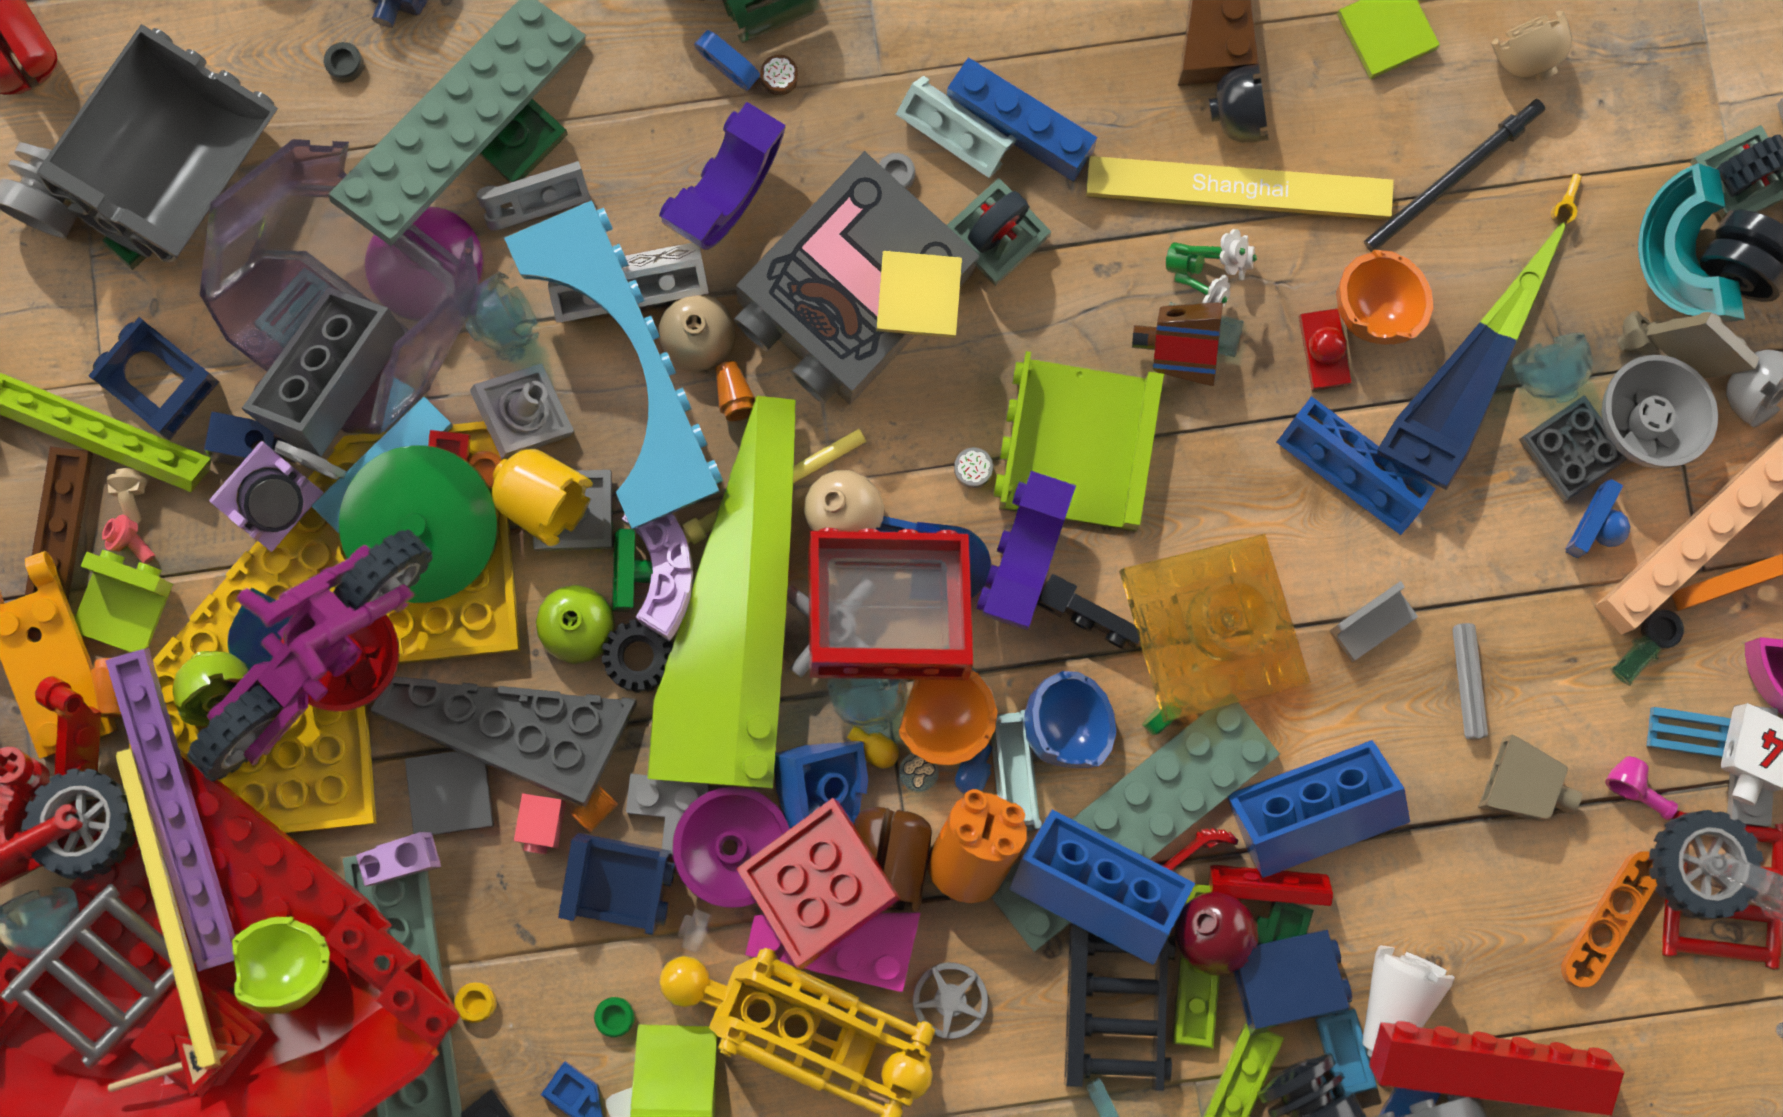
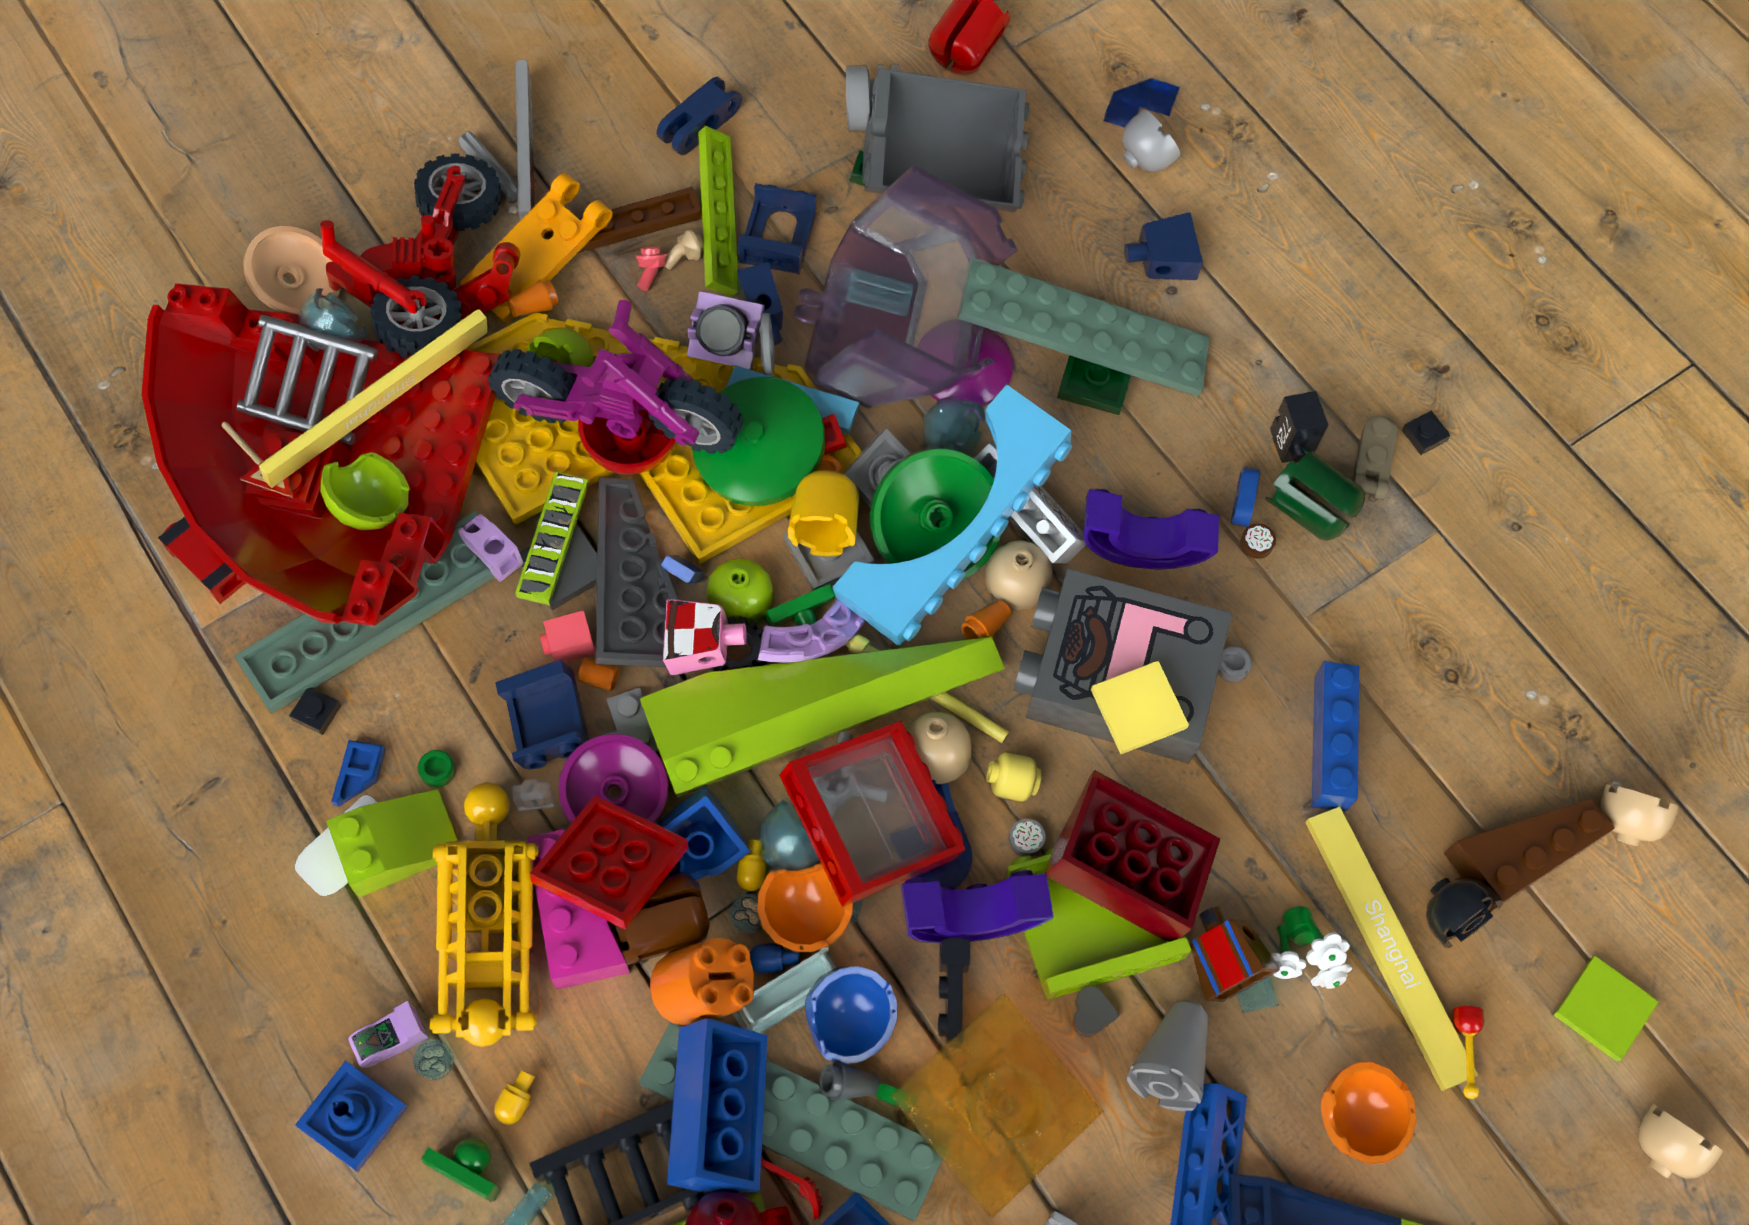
camera: 60 degrees right, 15 degrees down
(121, 602) = (599, 282): lime bracket -> none
(172, 808) = (457, 368): medium lavender plate -> none
(324, 370) = (827, 320): dark grey slope -> none
(343, 62) = (1082, 245): pearl dark grey tile -> none
(418, 790) = (552, 538): none -> tile
(475, 1002) = (404, 659): yellow tile -> none
(520, 669) = (683, 569): none -> tile
(533, 196) = (1060, 407): light grey plate -> none
(590, 385) = (928, 504): none -> green dish
(613, 688) = (698, 636): none -> torso
(909, 448) = (1014, 777): none -> light yellow head
(951, 999) = (566, 1032): light grey wheel -> none
(954, 127) = (1297, 687): light aqua container -> none
(993, 1076) = (514, 1100): none -> yellow cylinder
(1000, 230) = (1232, 762): sand green plate -> none
(1052, 378) = (1134, 858): none -> dark red slope
(1128, 757) = (847, 1082): none -> dark grey cone
(1170, 494) = (1093, 1012): none -> dark grey tile
(1250, 442) = (1174, 1059): none -> light grey cone
(1325, 349) = (1293, 1088): red tile -> none
(1345, 160) = (1469, 1022): none -> hinge
(1508, 130) = (1587, 1160): black bar -> none

